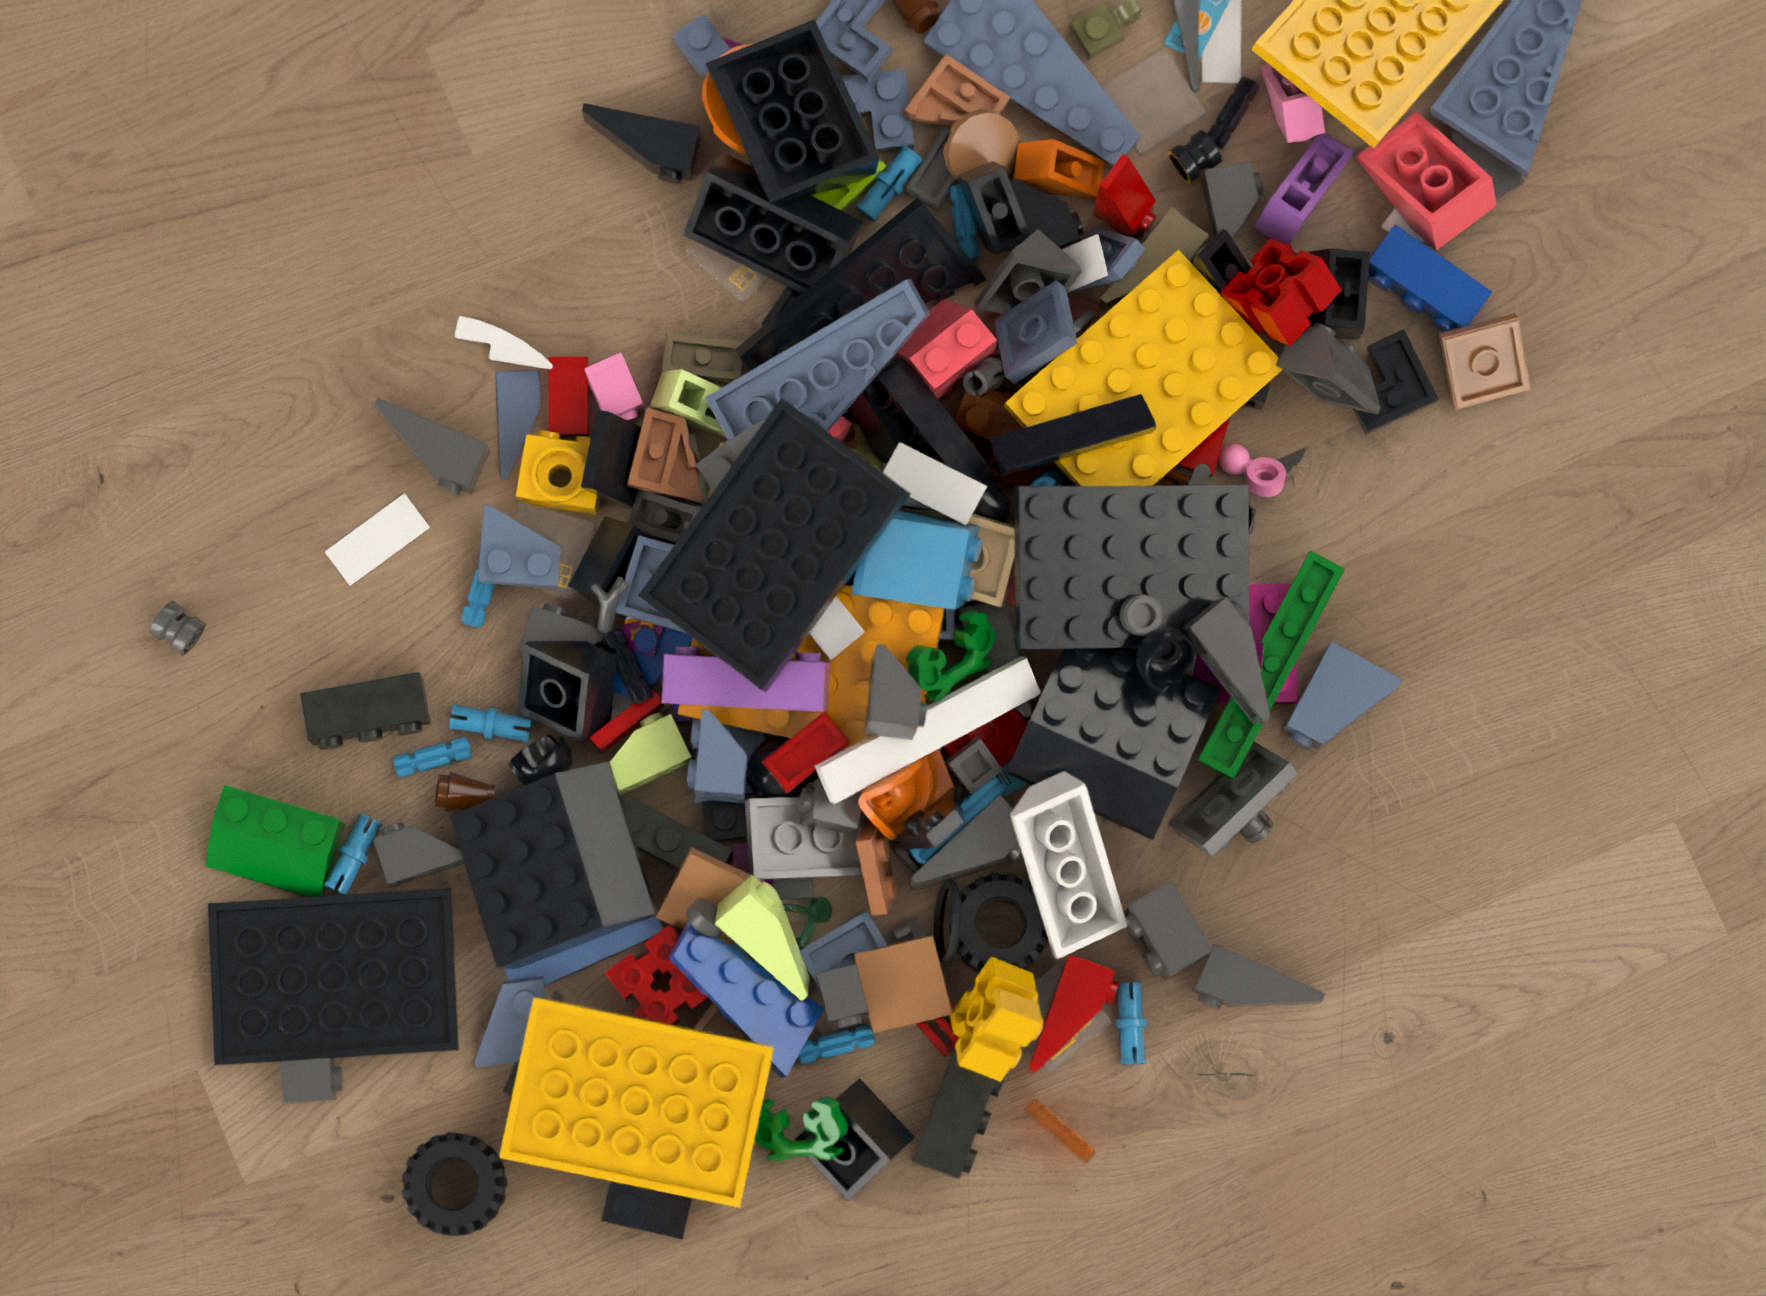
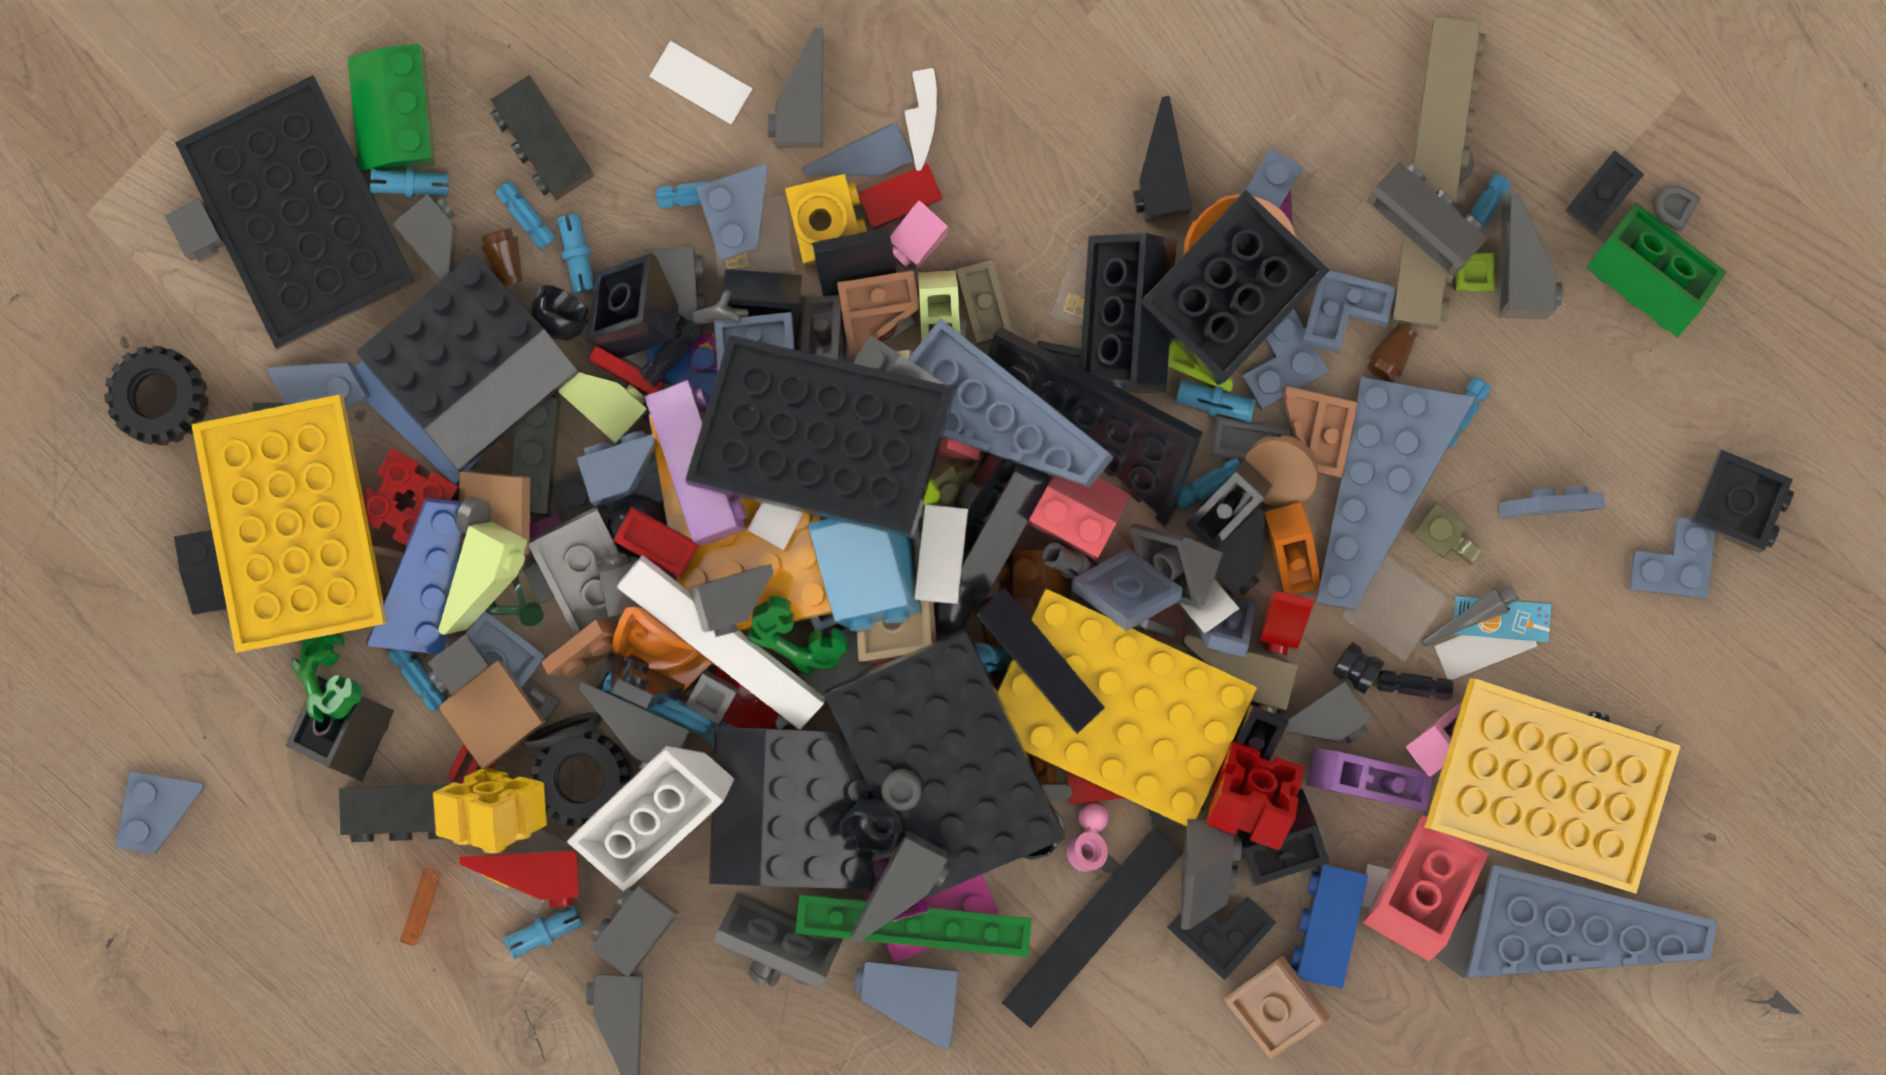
camera: 70 degrees right, 5 degrees up
(1338, 504) = (1092, 927): none -> black tile

